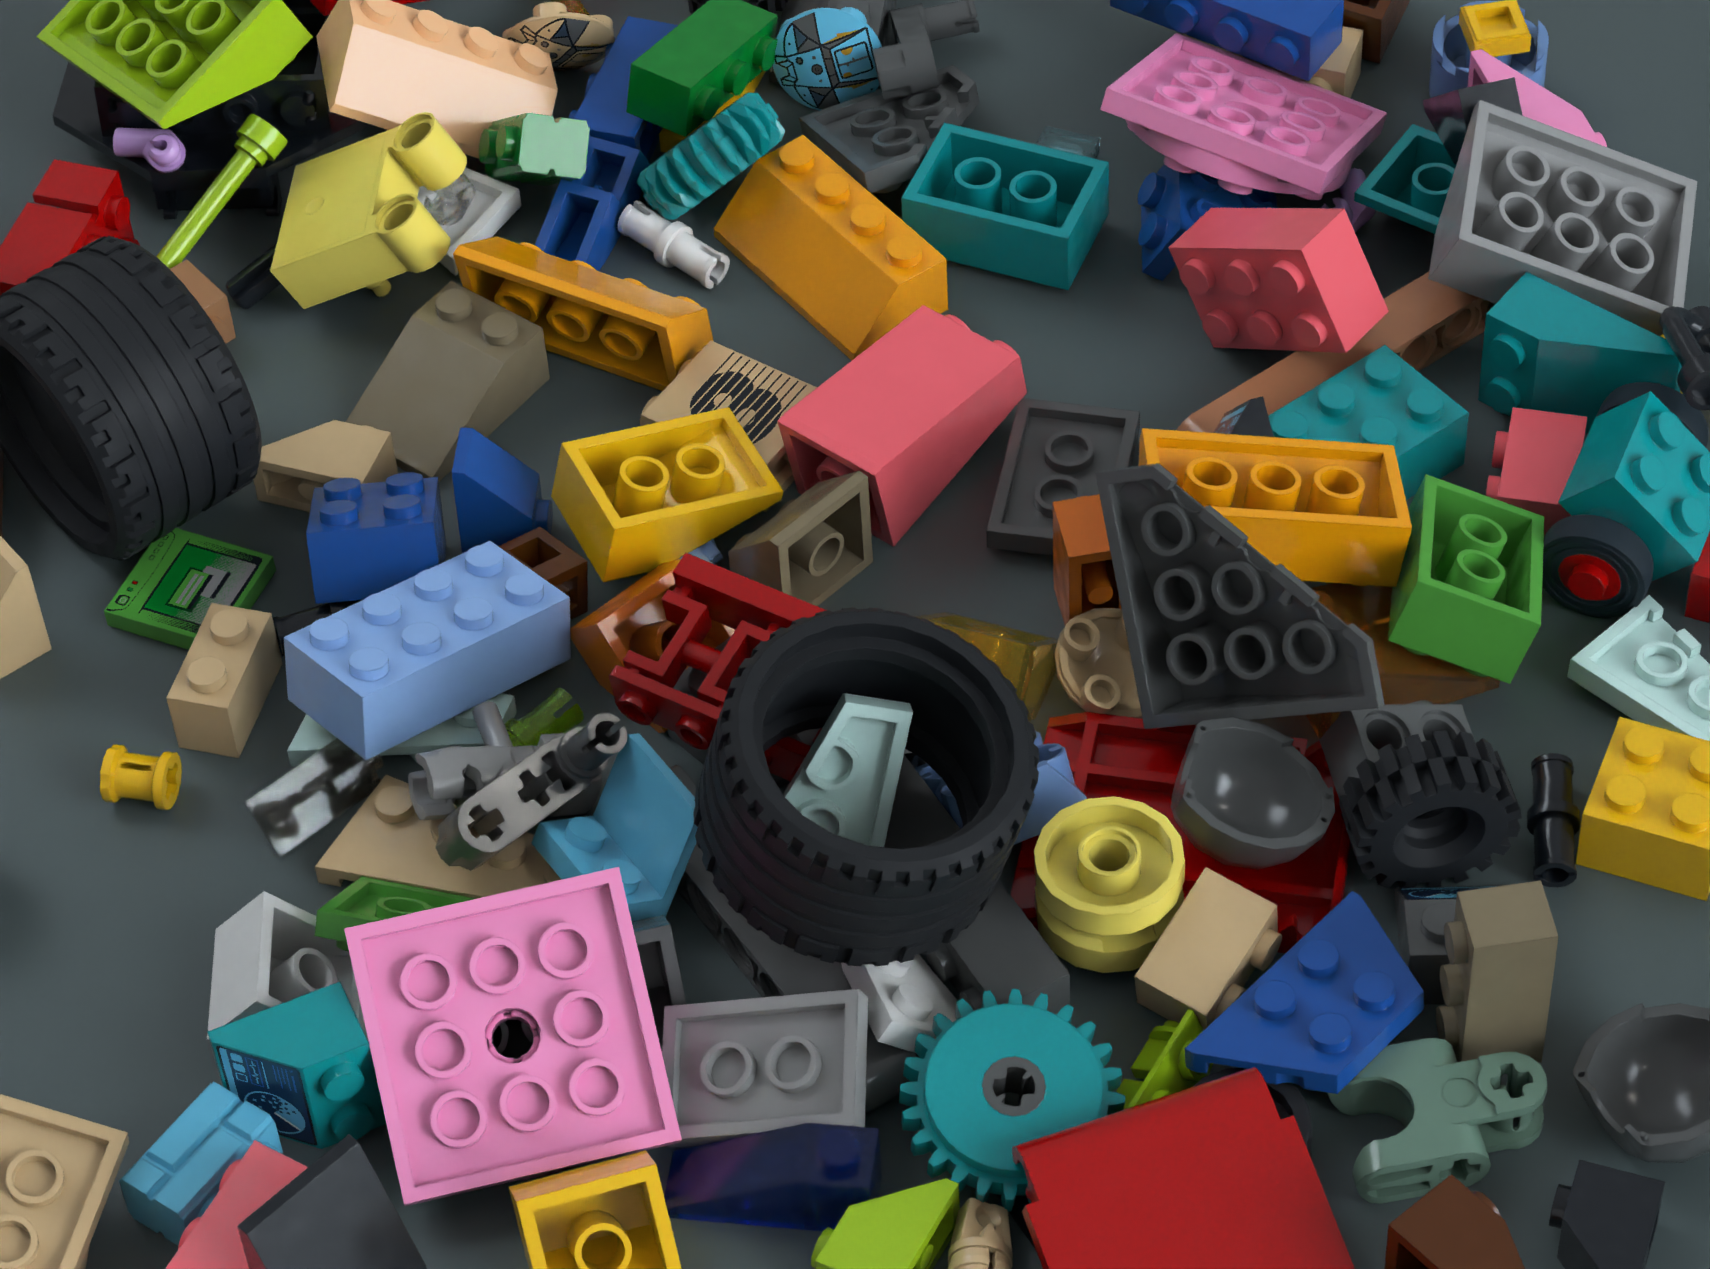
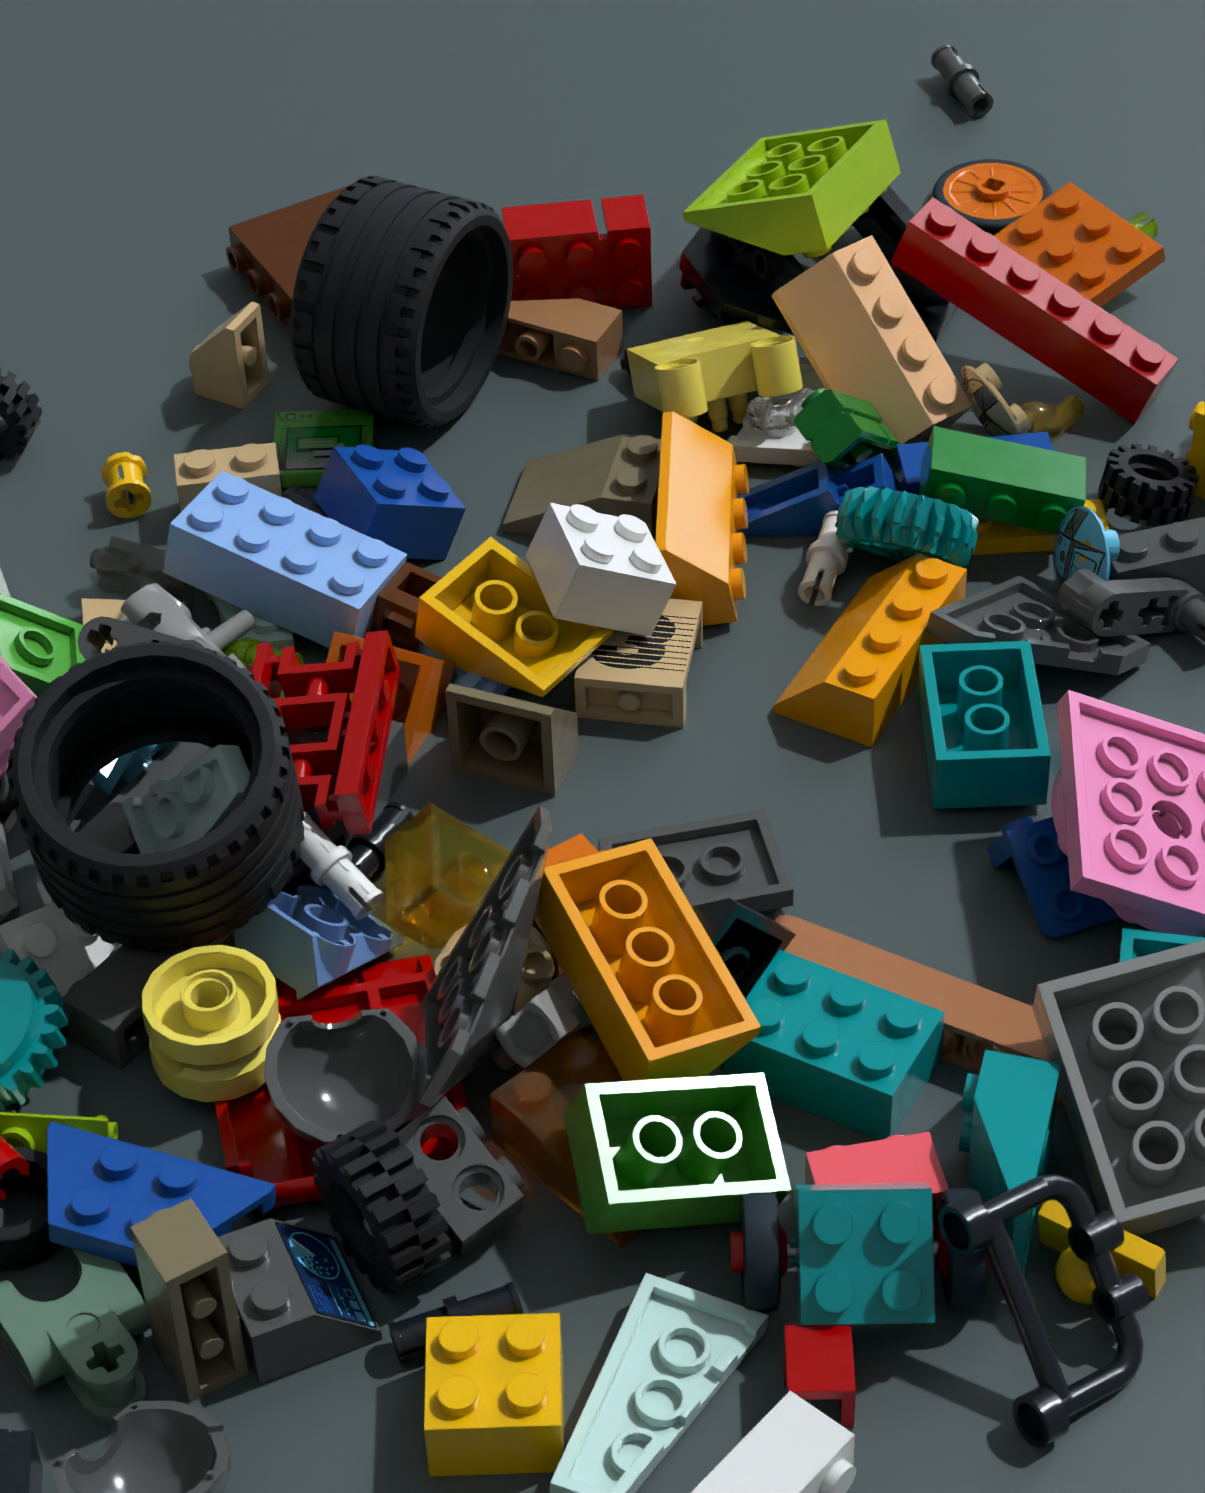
camera: 65 degrees right, 5 degrees down
(158, 146) = (699, 244): lavender arm -> none
(256, 145) = (731, 282): lime piece -> none
(321, 454) = (473, 464): tan slope -> none
(495, 493) = (461, 524): blue slope -> none
(668, 374) = (600, 569): none -> white brick
(905, 415) = (673, 736): coral slope -> none
(1208, 950) = (183, 1112): tan brick -> none
(1279, 279) = (957, 906): coral brick -> none

